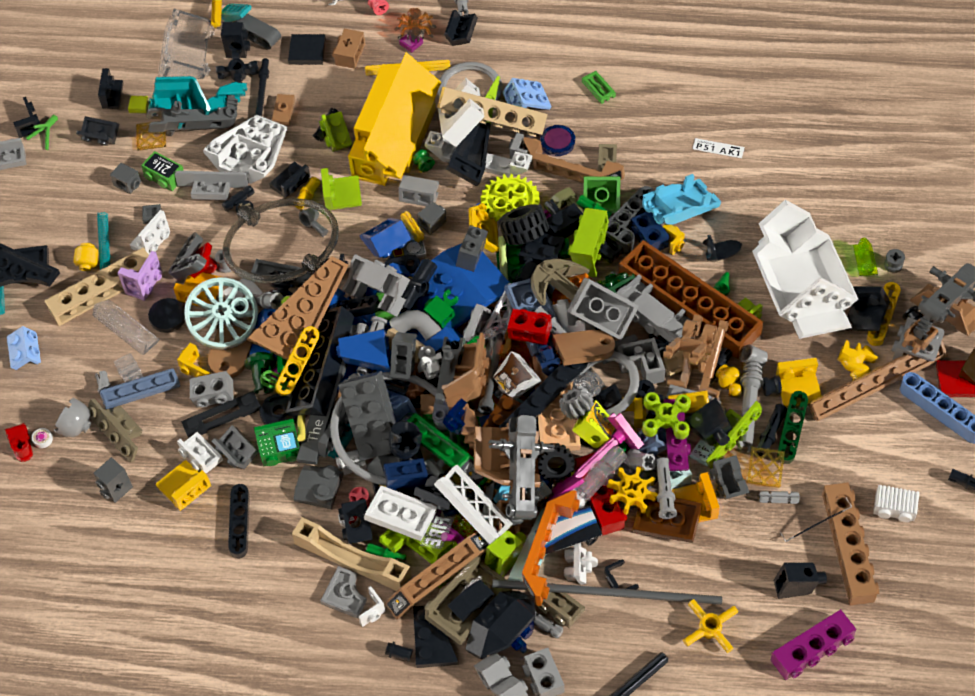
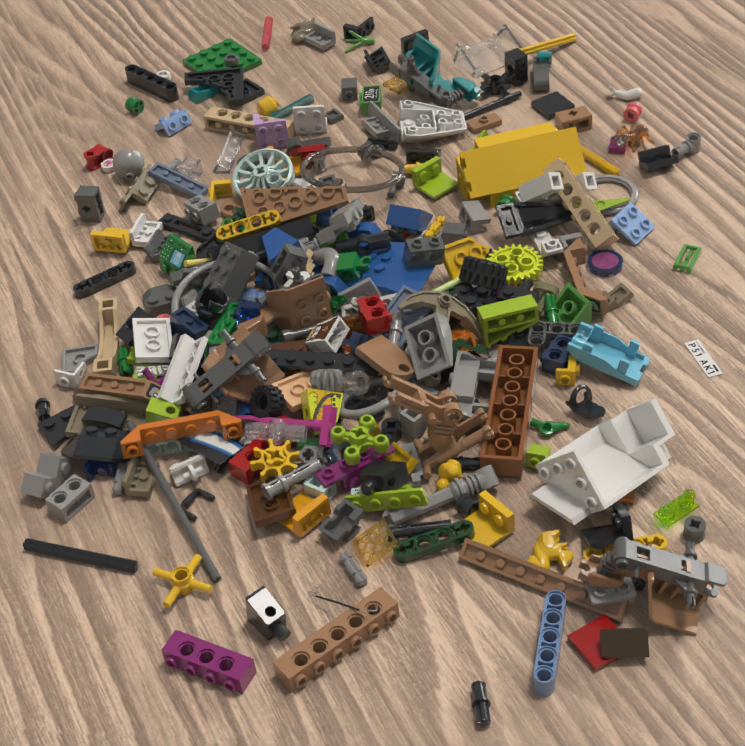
camera: 60 degrees right, 15 degrees down
(896, 503) = (408, 655): white brick -> none

